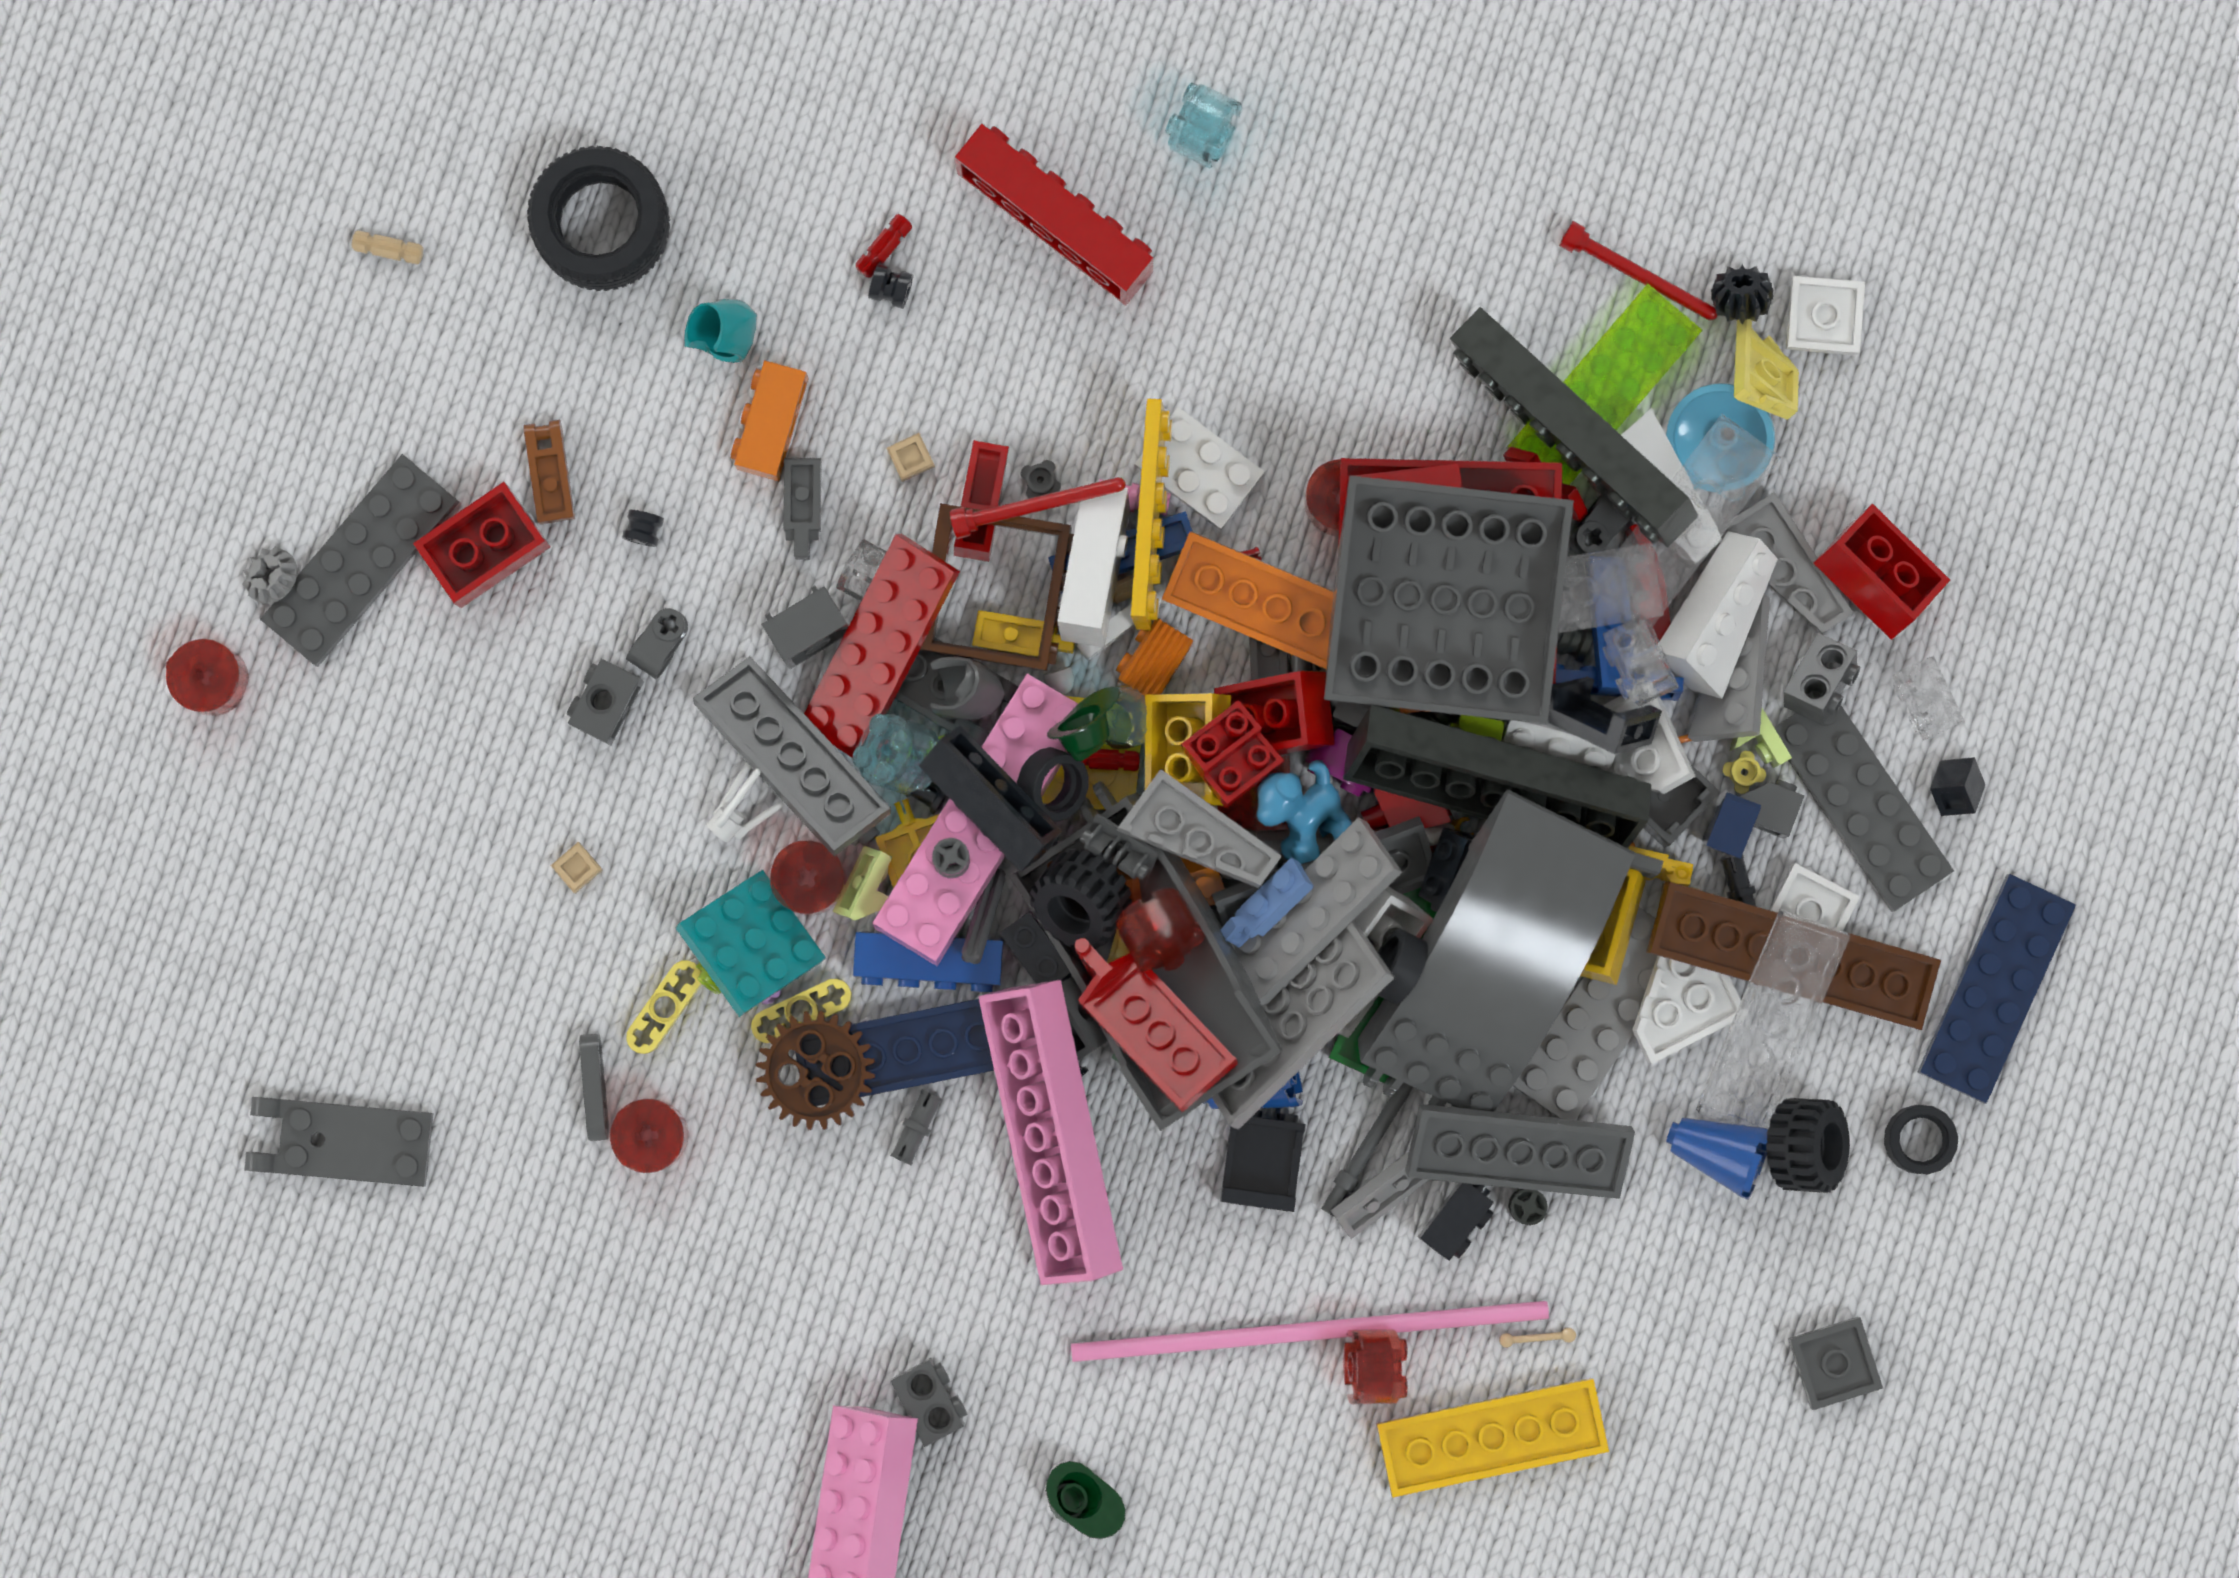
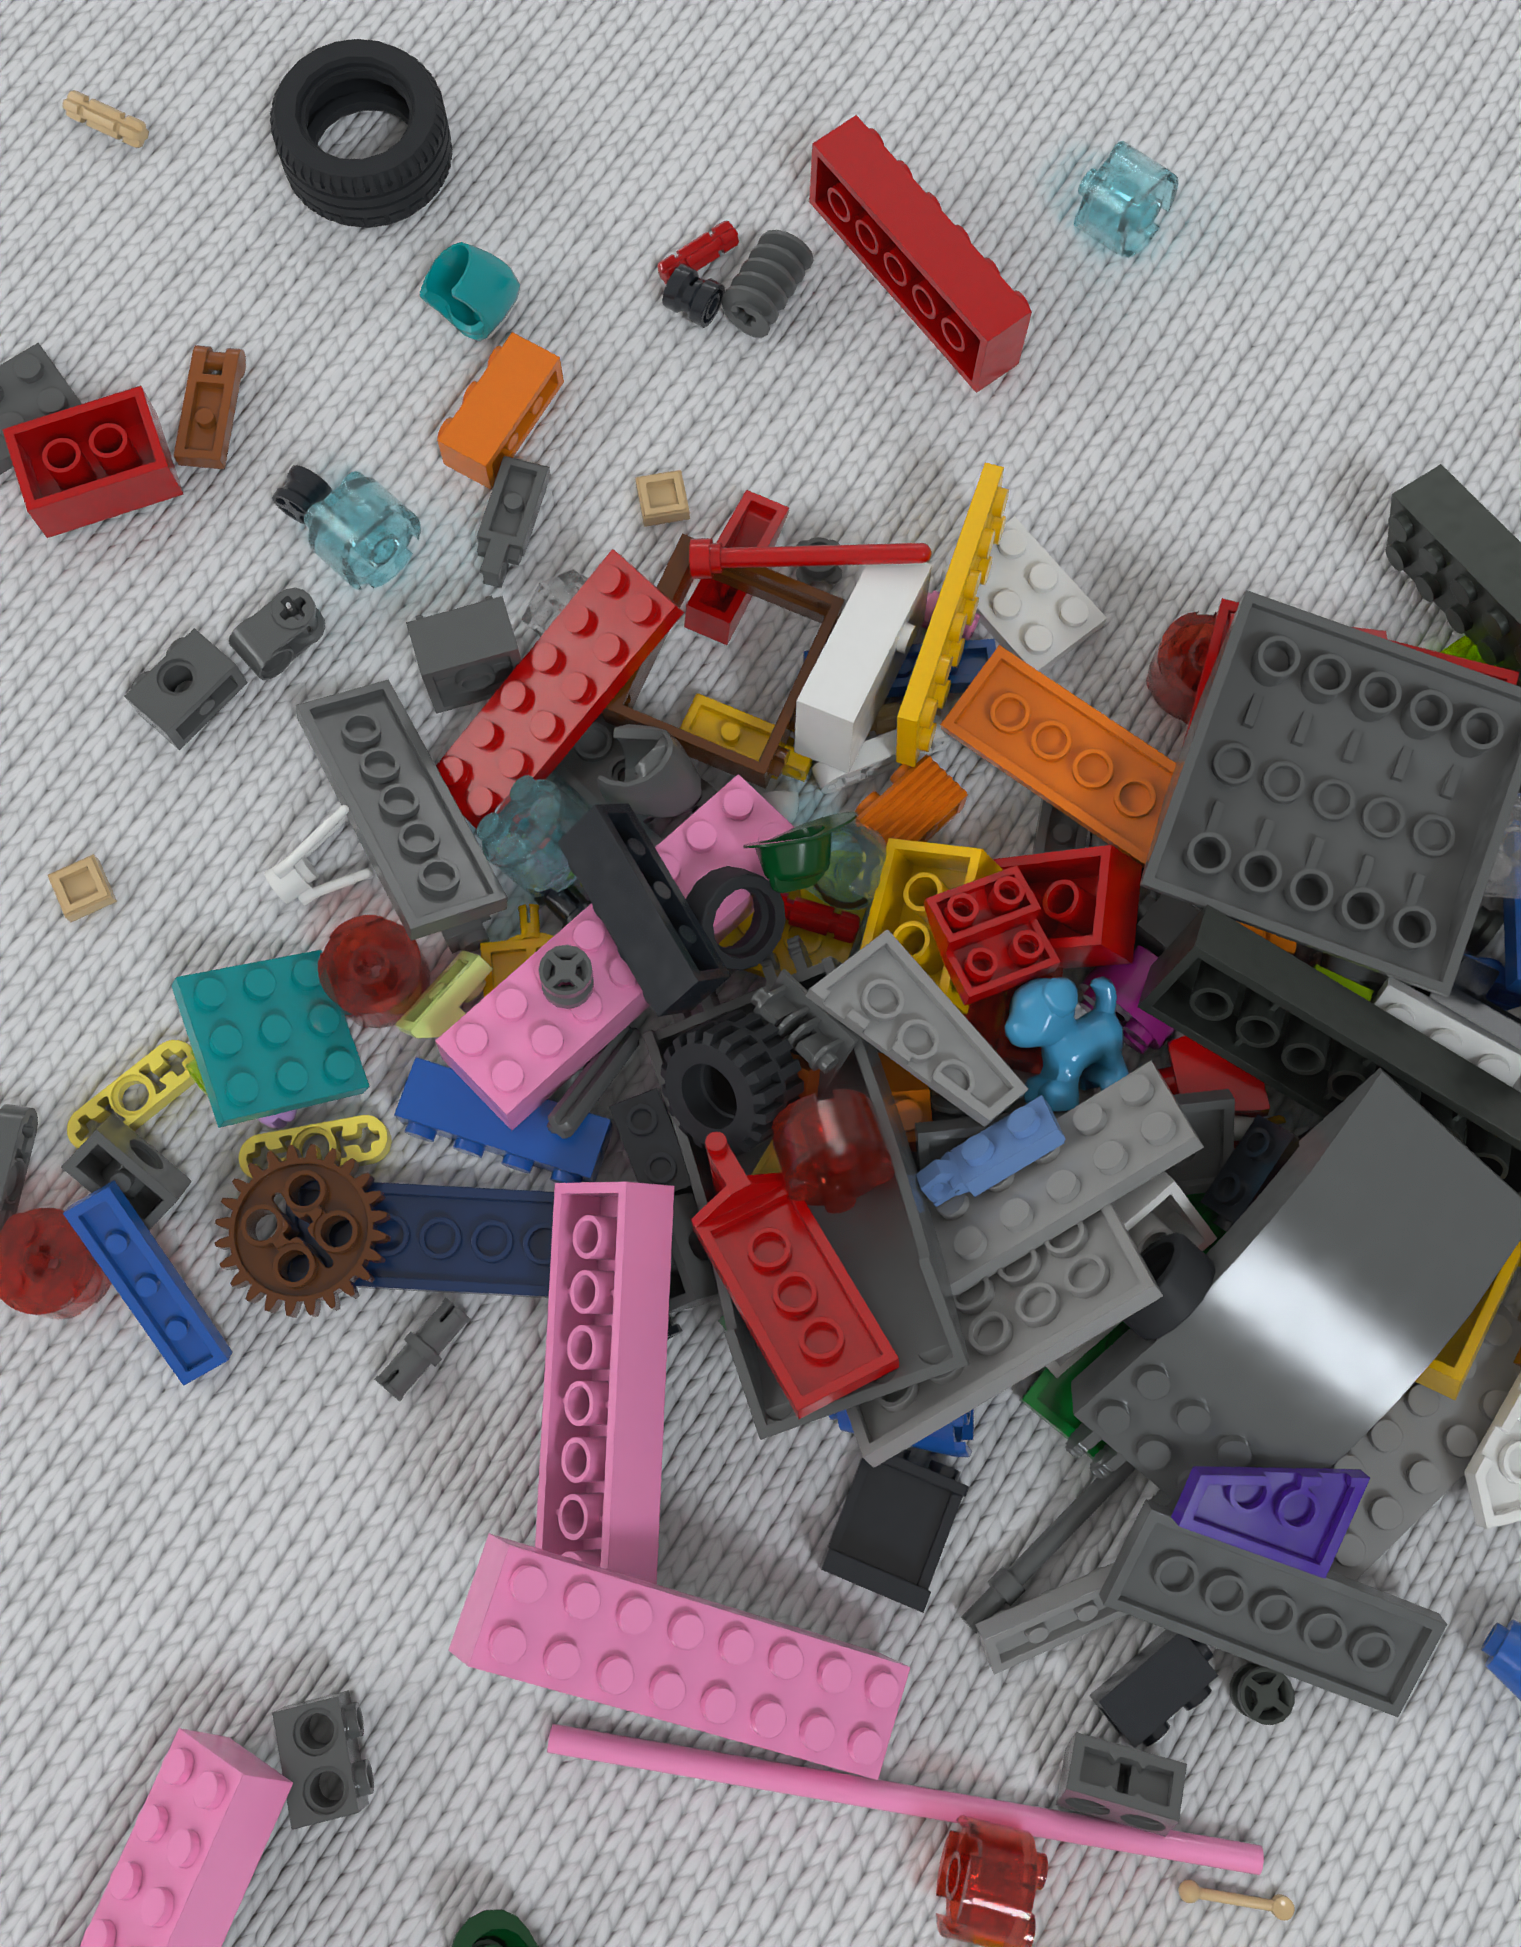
camera: 15 degrees right, 10 degrees down
(683, 1063) = (137, 1168): none -> dark grey brick
(699, 550) = (362, 531): none -> clear light blue brick
(722, 1132) = (148, 1282): none -> blue plate
(942, 262) = (766, 282): none -> dark grey piece
(1146, 1278) = (677, 1658): none -> bright pink brick
(1446, 1285) = (1121, 1784): none -> dark grey brick
(1502, 1091) = (1274, 1512): none -> dark purple wing

